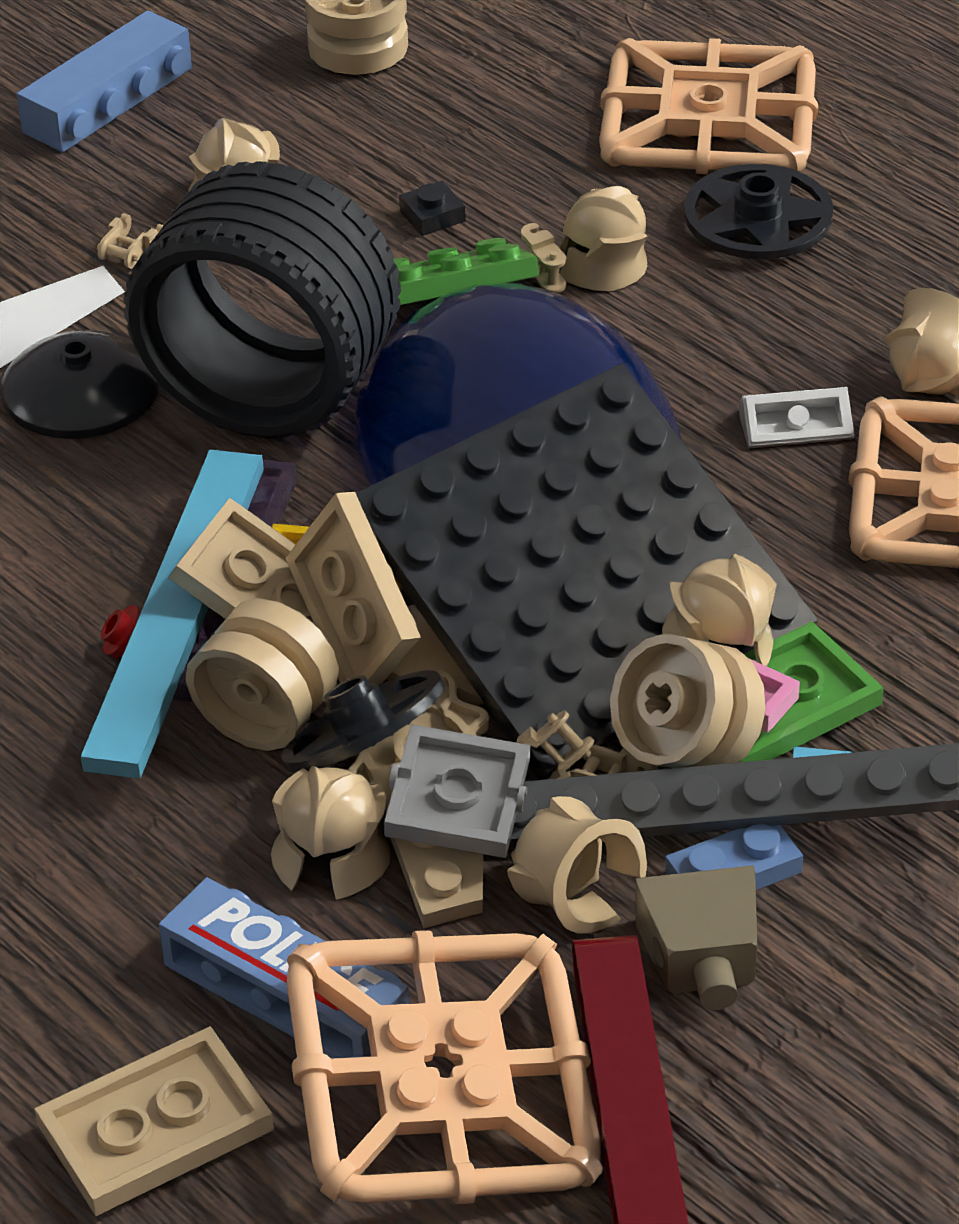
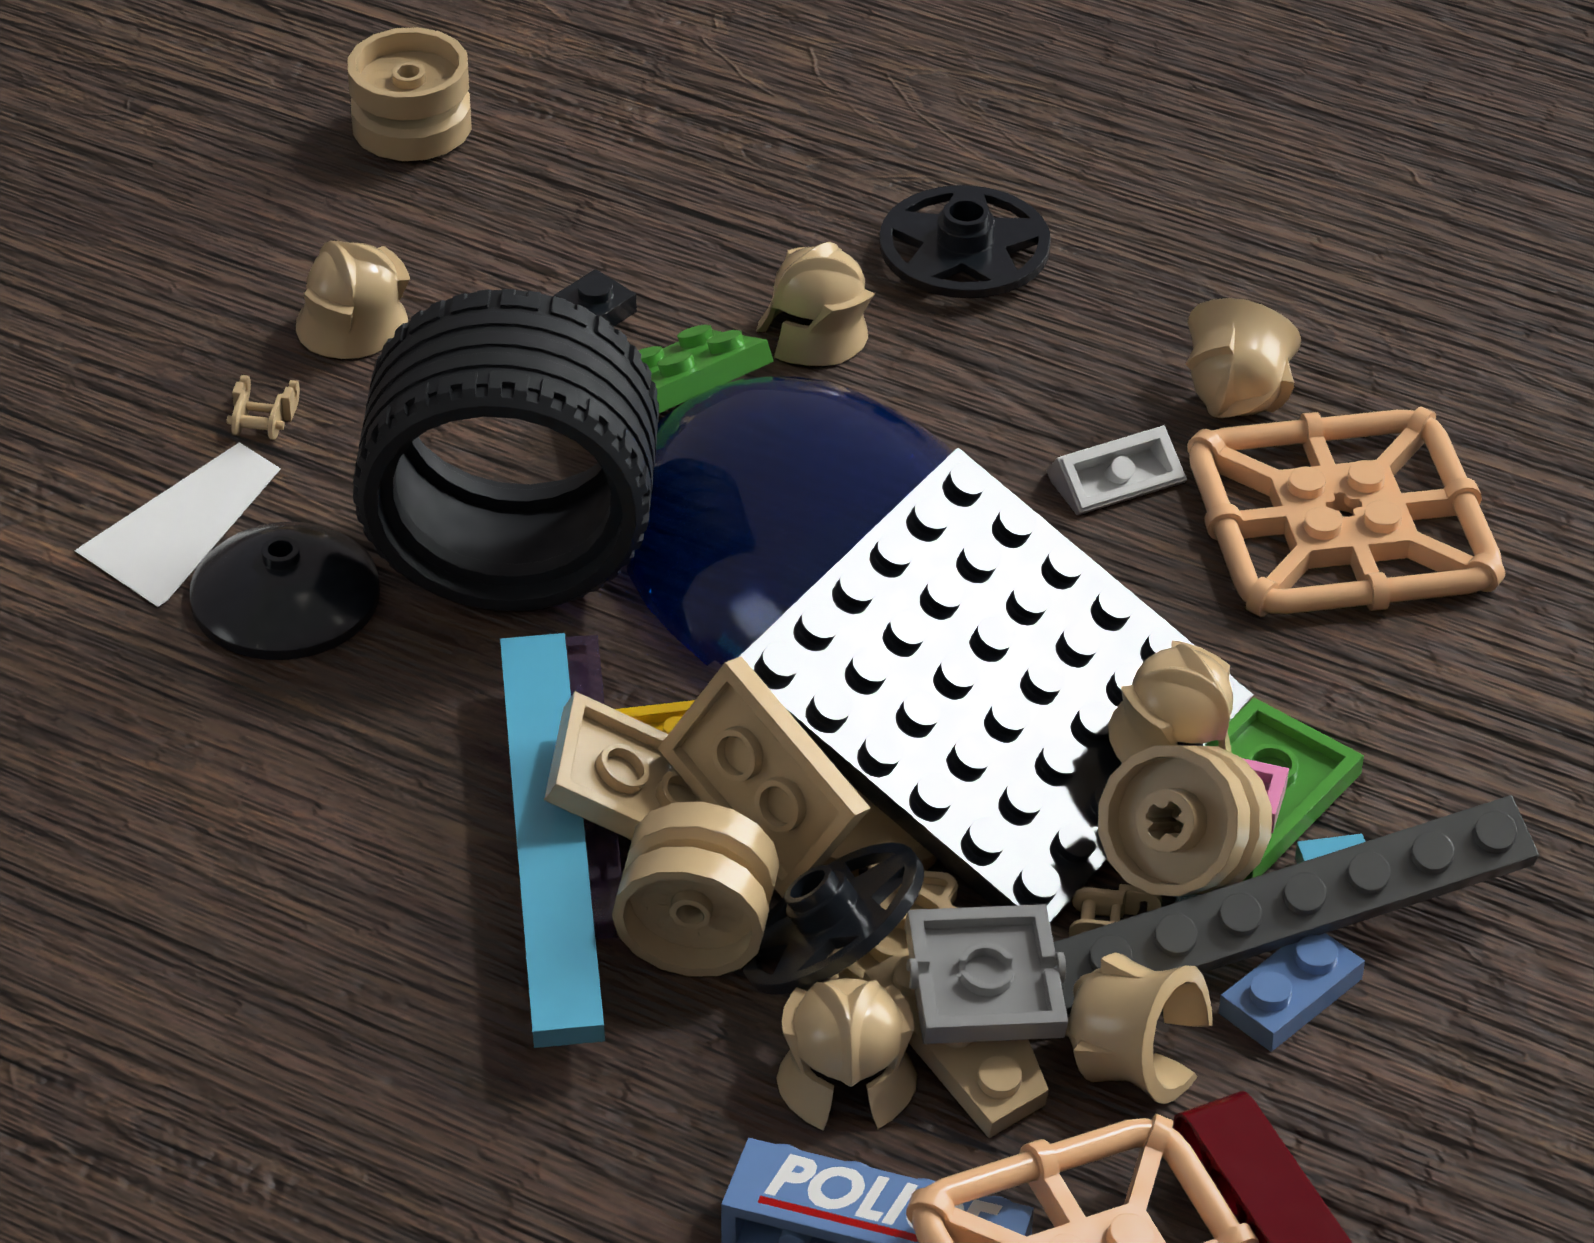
camera: 20 degrees left, 0 degrees up
(104, 81) = (139, 219): medium blue brick -> none
(118, 630) = (494, 877): red plate -> none
(549, 255) = (757, 324): tan piece -> none
(557, 724) = (1036, 893): tan piece -> none
(701, 931) = (1303, 1069): dark tan torso -> none
(707, 104) = (878, 131): light nougat plate -> none

